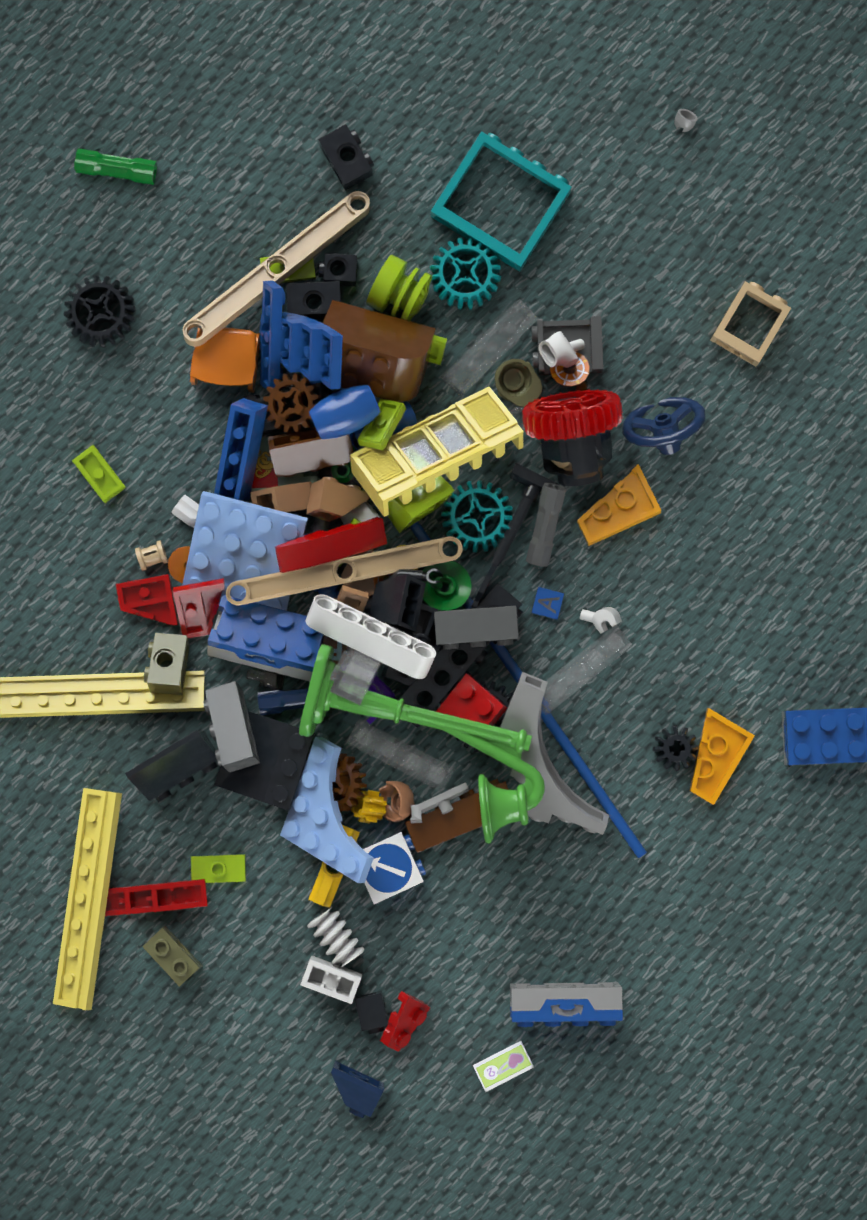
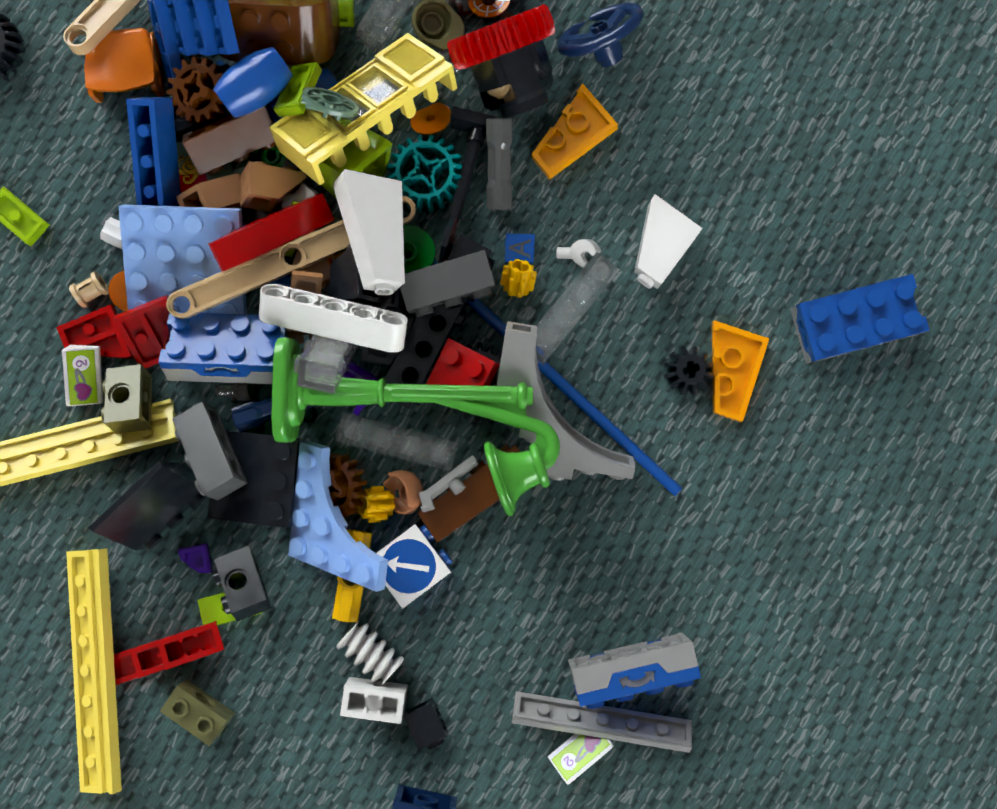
camera: 10 degrees left, 0 degrees up
(131, 633) = (82, 375): none -> slope
(197, 819) = (197, 557): none -> dark purple tile
(235, 835) = (253, 596): none -> black brick
(402, 1024) = (461, 732): red wing -> none
(407, 448) = (329, 103): none -> sand green wheel
(424, 566) = (374, 226): none -> white slope
(494, 468) = (431, 119): none -> orange piece
(528, 1044) = (602, 722): none -> light grey tile
(540, 631) = (518, 278): none -> yellow gear
(678, 627) = (663, 242): none -> white slope

